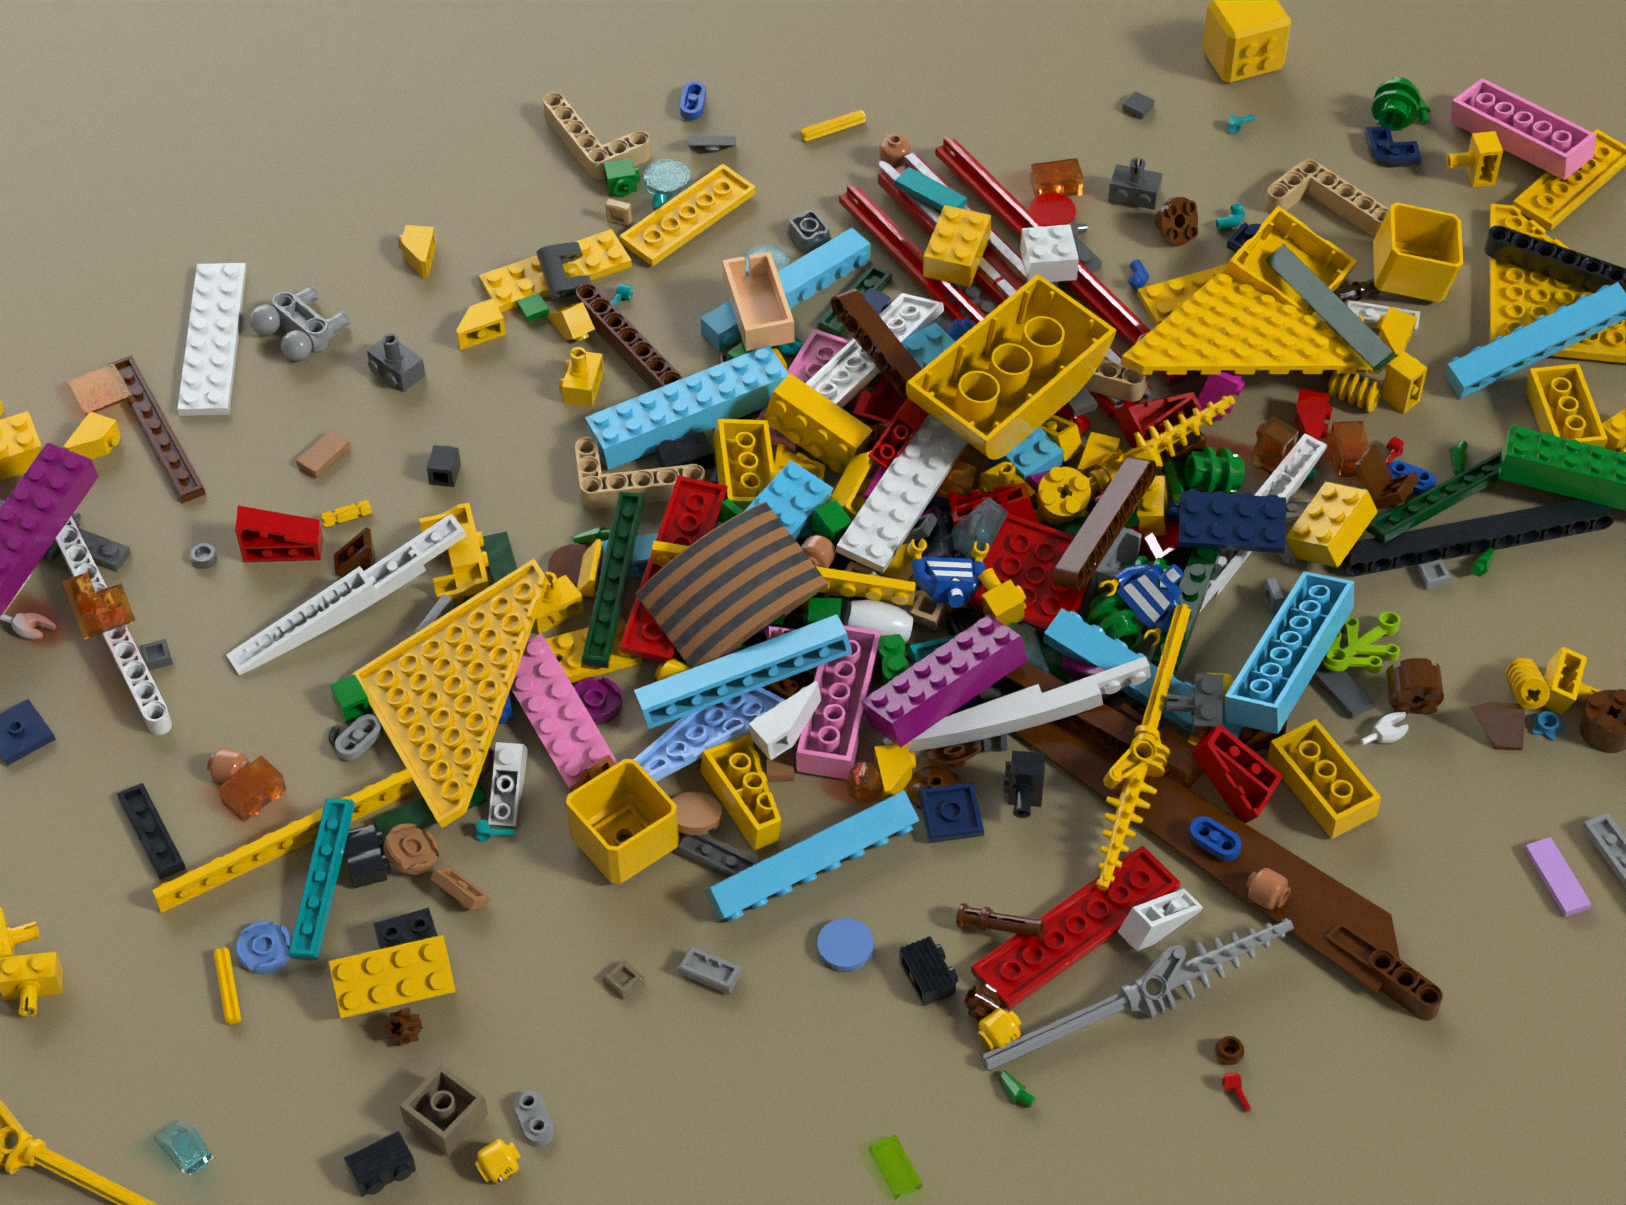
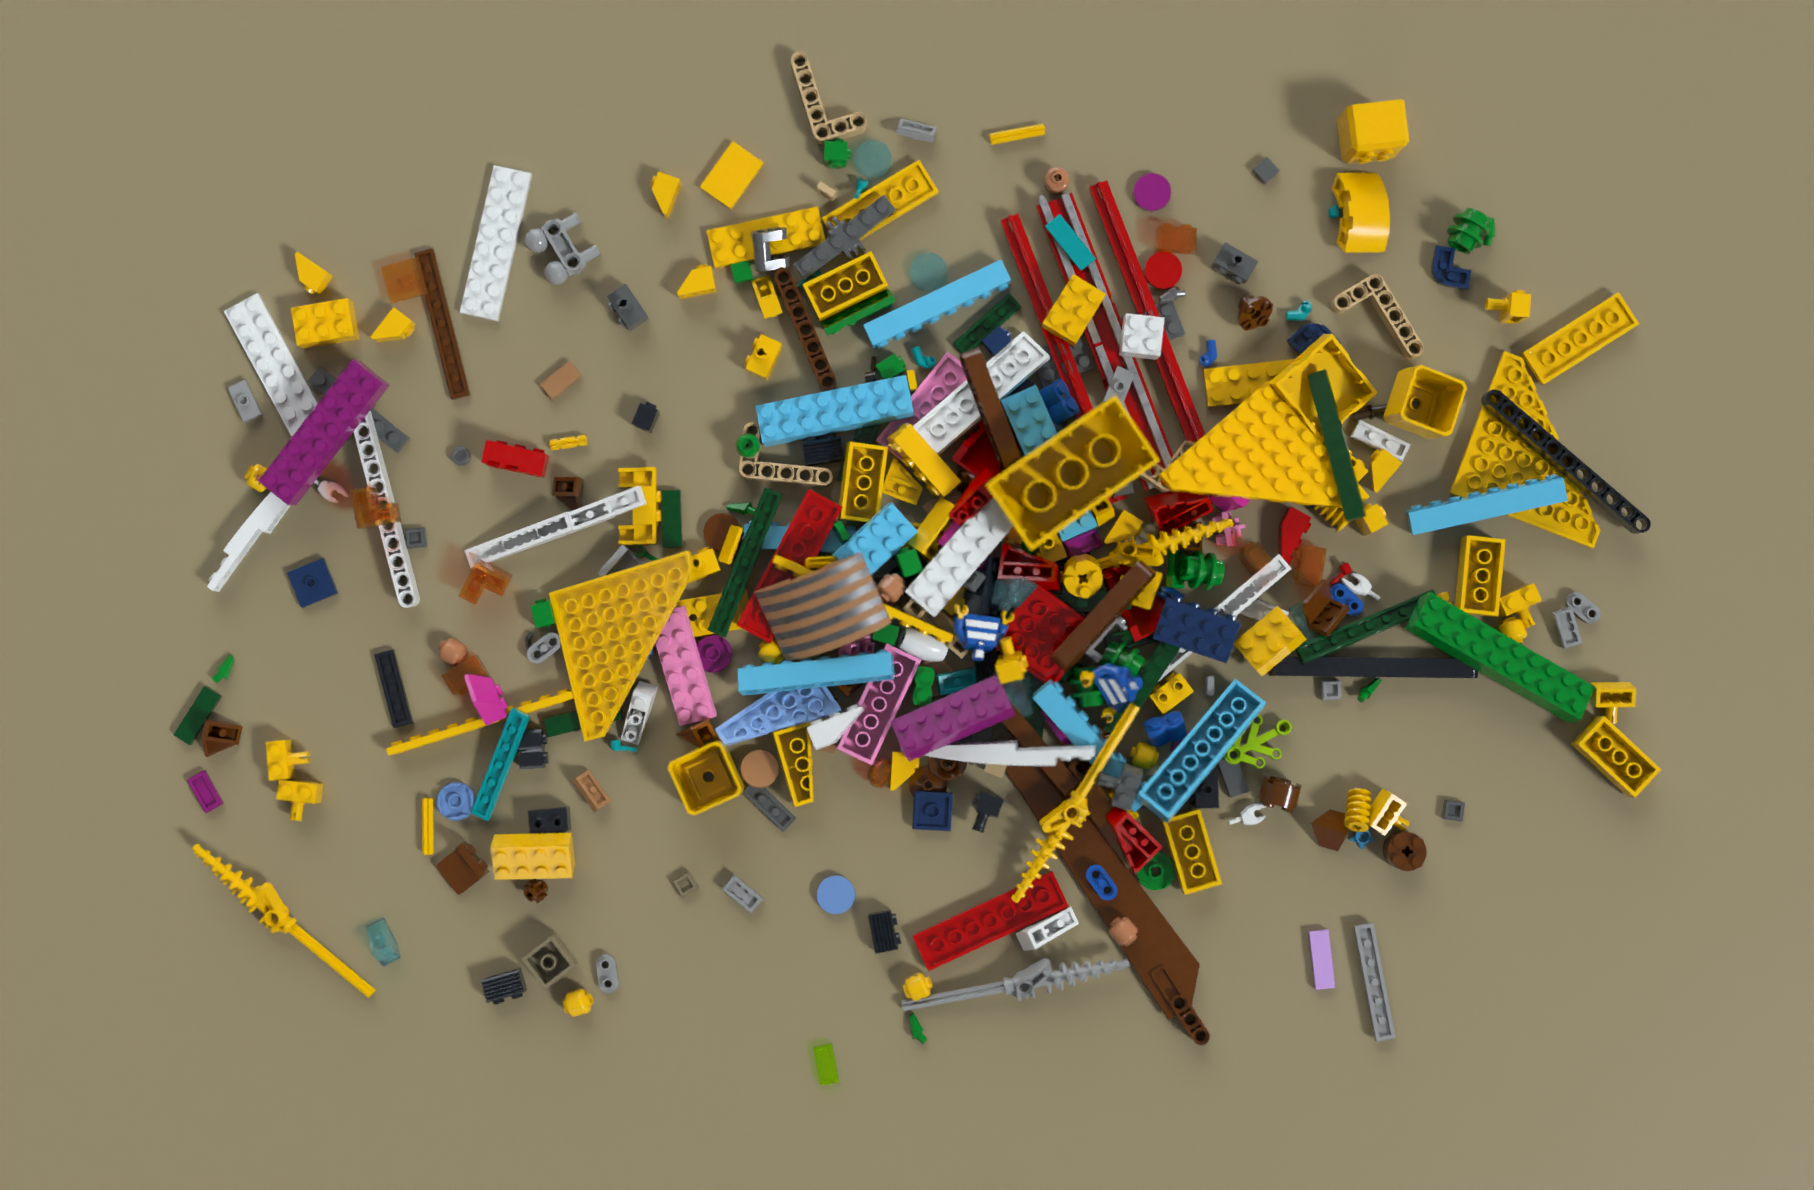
camera: 10 degrees right, 35 degrees up
(261, 666) = (484, 576): none -> clear orange brick
(287, 799) = (486, 698): none -> dark pink slope
(291, 1021) = (462, 868): none -> reddish brown bracket
(411, 849) = (564, 752): medium nougat tile -> none
(497, 222) = (731, 175): none -> yellow tile
(585, 457) = (753, 448): none -> green plate
(653, 246) = (844, 237): none -> dark grey hinge
(667, 290) = (845, 286): none -> yellow brick
(683, 319) = (864, 309): none -> green plate
(693, 100) = (912, 80): blue plate -> none
(758, 301) = (907, 330): light nougat piece -> none
(808, 231) = (969, 247): flat silver piece -> none
(811, 855) = (829, 826): medium azure brick -> none
(981, 1000) = (911, 964): reddish brown gear -> none
(986, 920) = (932, 904): reddish brown pin -> none
(1012, 146) = (1152, 192): none -> magenta tile
(1022, 741) = (995, 769): none -> tan tile
(1225, 614) = (1170, 693): none -> yellow brick
(1229, 1043) = (1061, 1042): reddish brown plate -> none
(1231, 651) = (1165, 729): none -> blue brick
(1233, 1081) = (1055, 1059): red hand -> none
(1240, 427) = (1229, 537): none -> bright pink hips
(1269, 117) = (1365, 212): none -> yellow panel
(1281, 832) = (1159, 881): none -> green plate
(1317, 704) = (1207, 792): none -> black brick
(1423, 458) = (1363, 586): none -> white hand
(1458, 456) = (1387, 590): green bar -> none
(1524, 128) = (1557, 284): bright pink brick -> none

